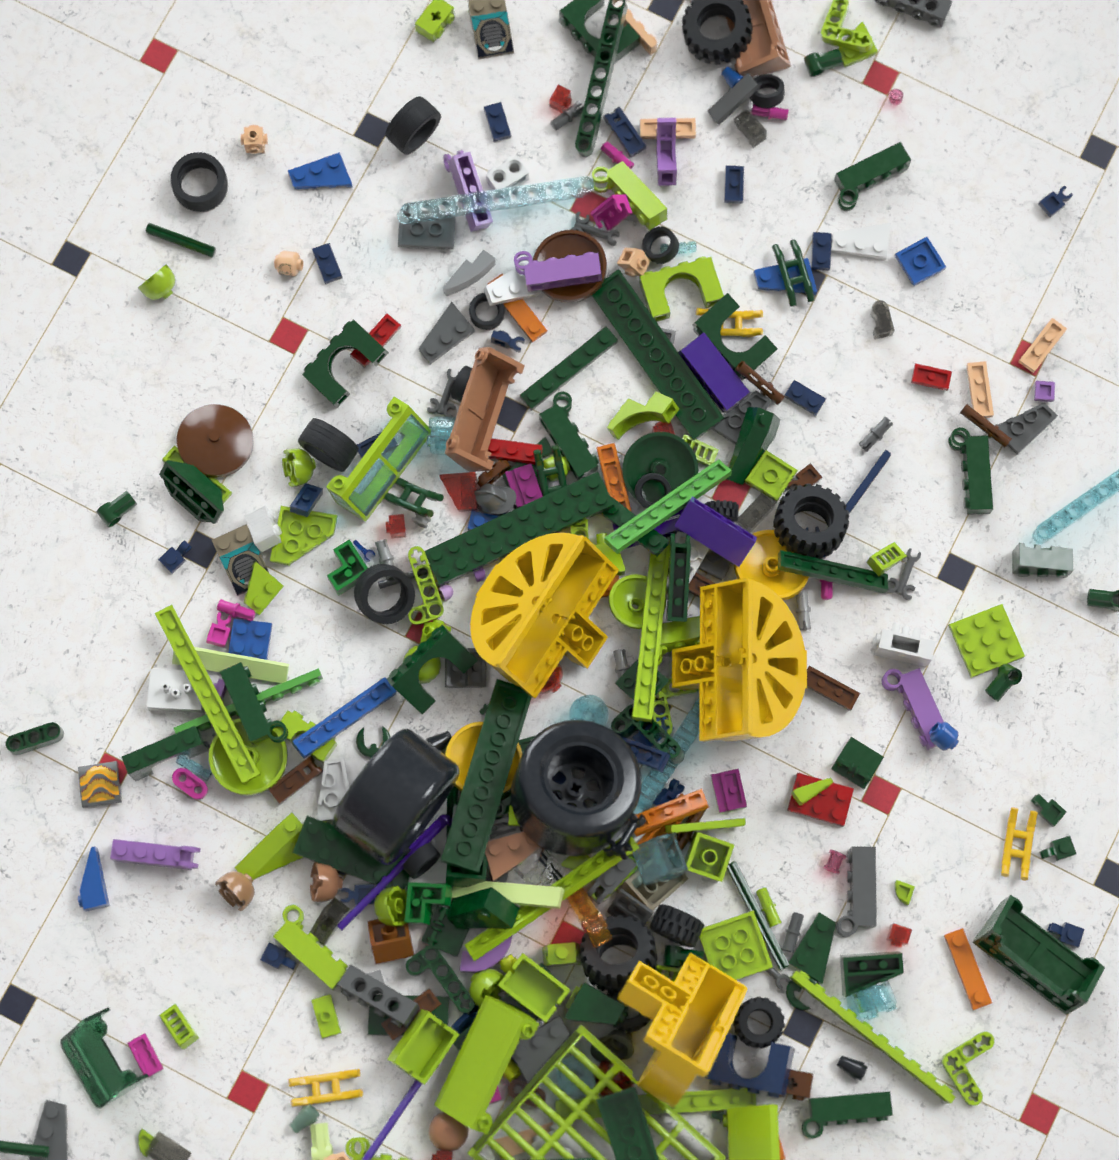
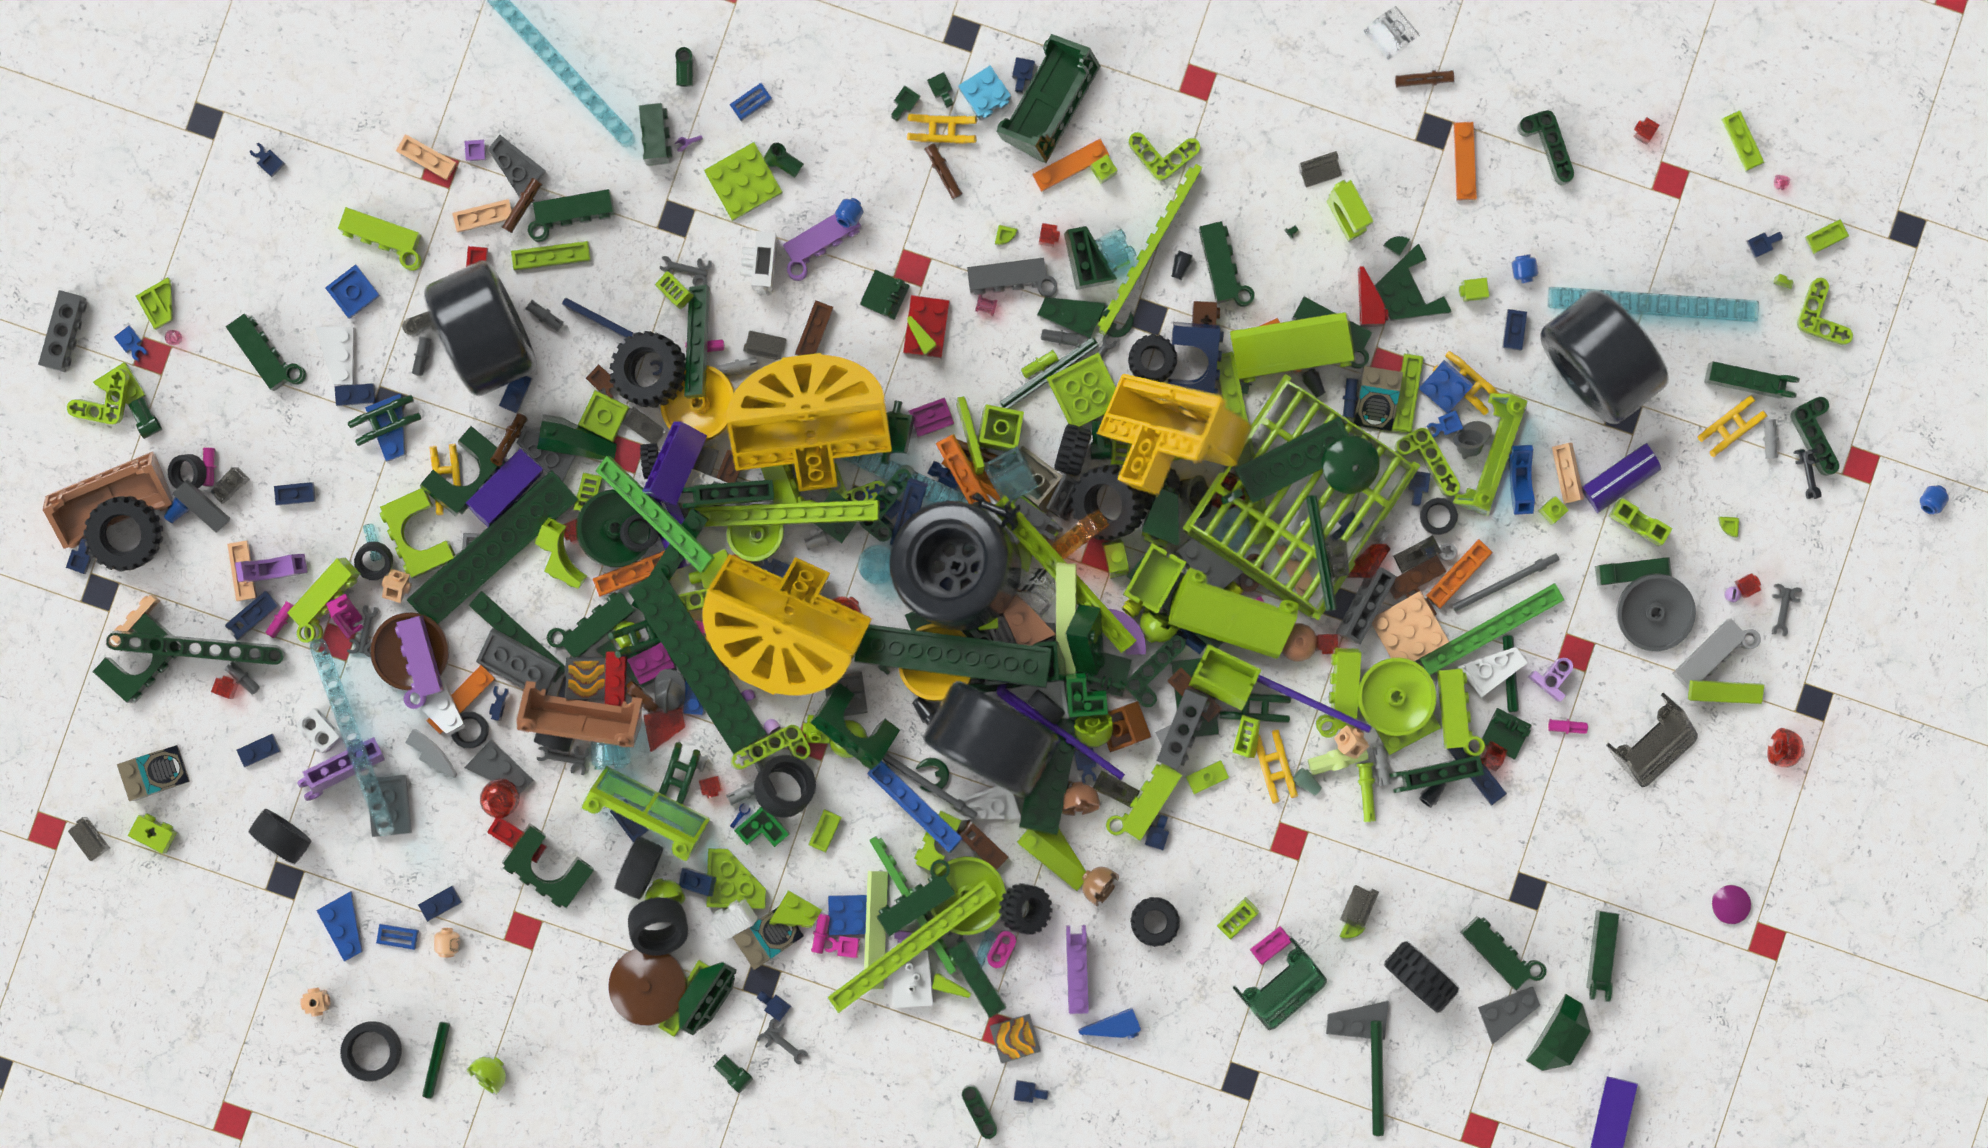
camera: 95 degrees left, 10 degrees up
(45, 788) = (1026, 1091): none -> dark blue plate
(147, 551) = (772, 1034): none -> dark grey bar
(163, 725) = (945, 985): none -> lime slope
(177, 928) = (1164, 936): none -> black tyre
(215, 821) = (1038, 908): none -> black tyre
(281, 459) = (662, 940): none -> black tyre
(291, 233) = (396, 944): none -> blue tile
(335, 629) = (825, 830): none -> lime plate
(339, 760) = (959, 805): none -> dark grey bar
(355, 1054) = (1239, 744): none -> lime slope
(379, 1084) = (1264, 715): none -> dark green piece
(416, 328) = (499, 798): none -> clear red cylinder
(519, 422) = (585, 678): none -> slope
(544, 362) = (516, 661): none -> dark grey tile
(599, 616) = (775, 567): none -> dark blue plate
(606, 1078) = (1231, 496): none -> dark green tile
(719, 753) = (900, 431): none -> dark green plate
(821, 638) = (765, 345): none -> clear smoke panel
(850, 315) = (421, 356): none -> dark grey axle
(870, 363) = (480, 328): none -> black wheel
(897, 58) = (129, 341): none -> blue plate
(929, 87) = (157, 303): none -> lime wing
(933, 448) = (550, 255): none -> lime tile
(960, 1001) = (1103, 169): none -> lime brick
(971, 840) = (939, 164): none -> reddish brown pin
(972, 297) = (383, 233): none -> lime hinge
(1031, 590) = (685, 142): none -> medium lavender hand
(1051, 892) = (985, 92): none -> medium azure plate
(1058, 662) = (764, 92): none -> blue tile

